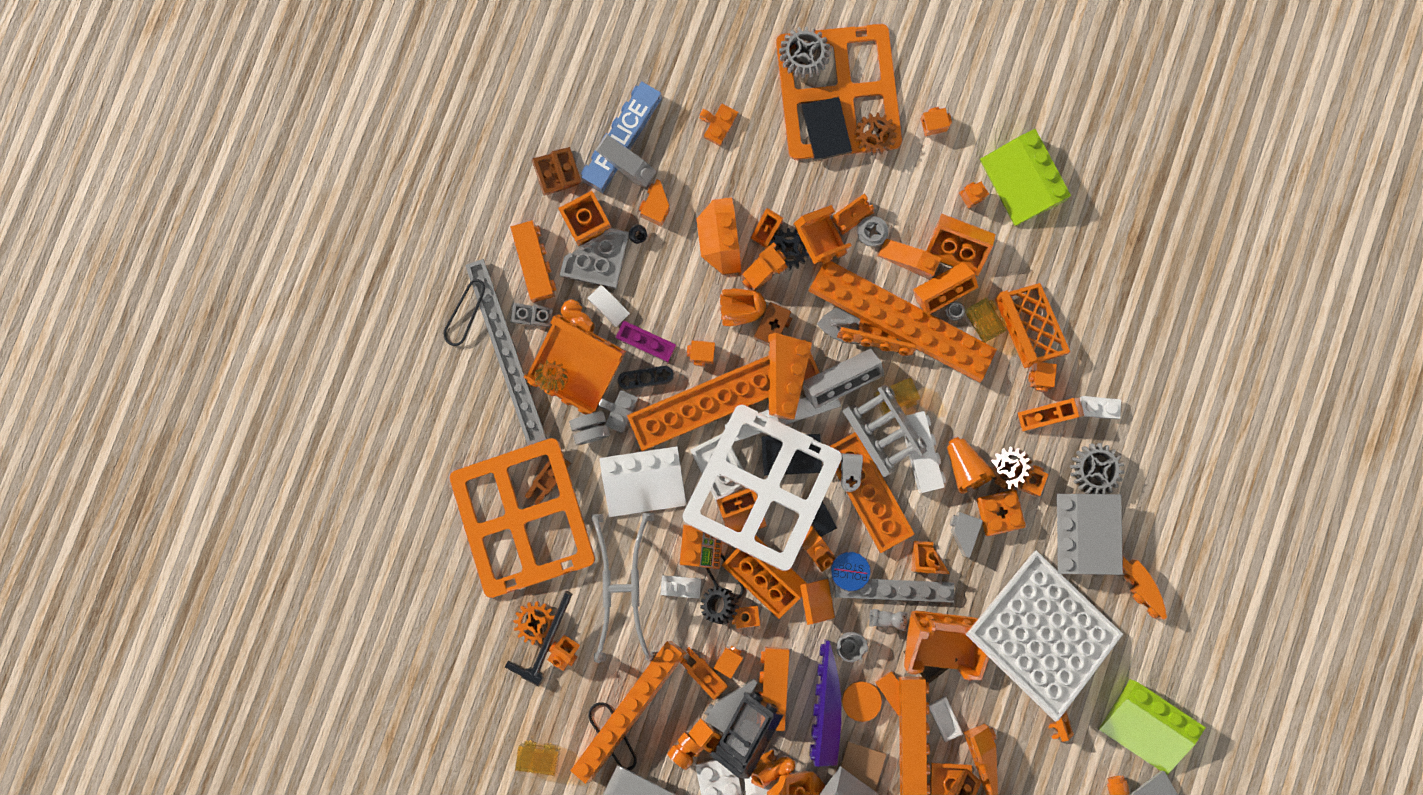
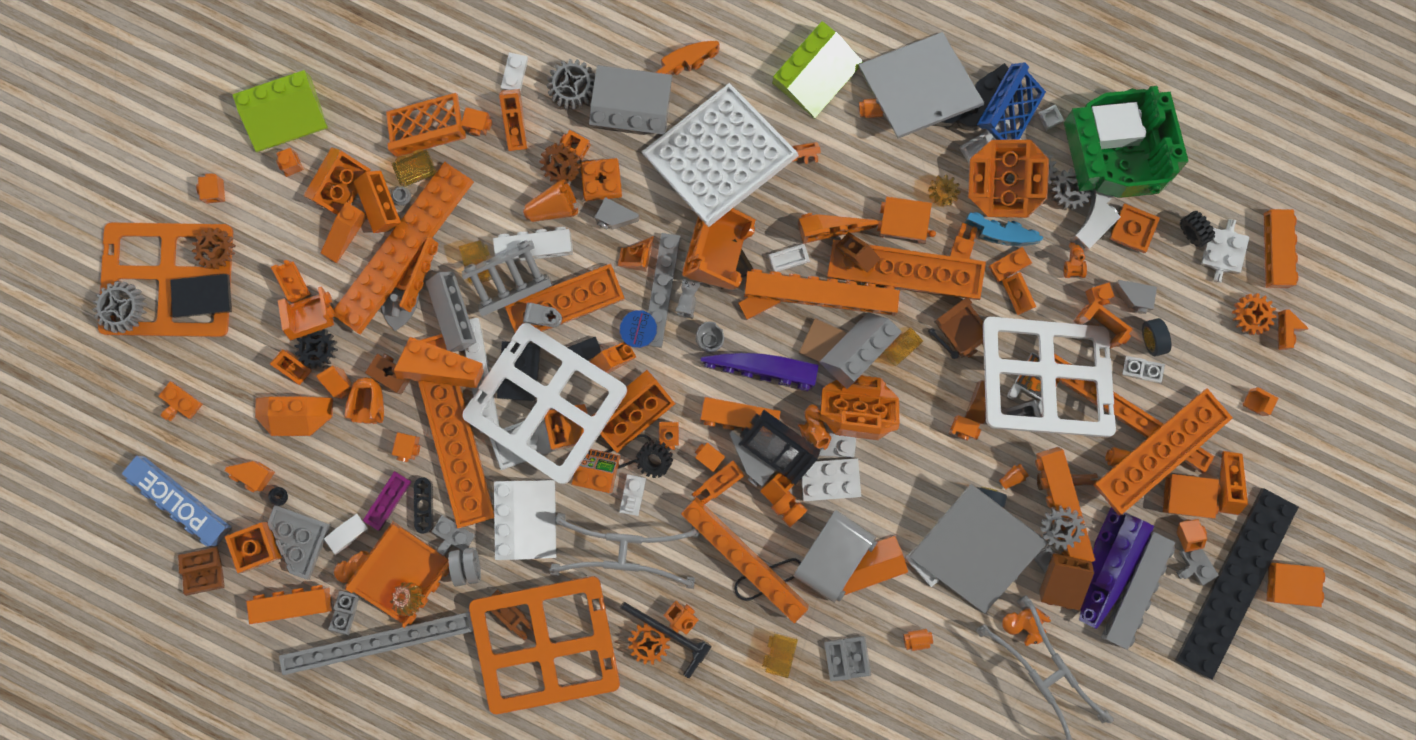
camera: 85 degrees left, 0 degrees up
(472, 317) = (325, 688): black piece -> none
(626, 161) = (200, 498): light grey slope -> none
(774, 259) = (322, 362): orange brick -> none
(817, 601) = (662, 364): orange tile -> none
(861, 701) = (762, 334): orange tile -> none
(869, 223) = (303, 267): light grey gear -> none

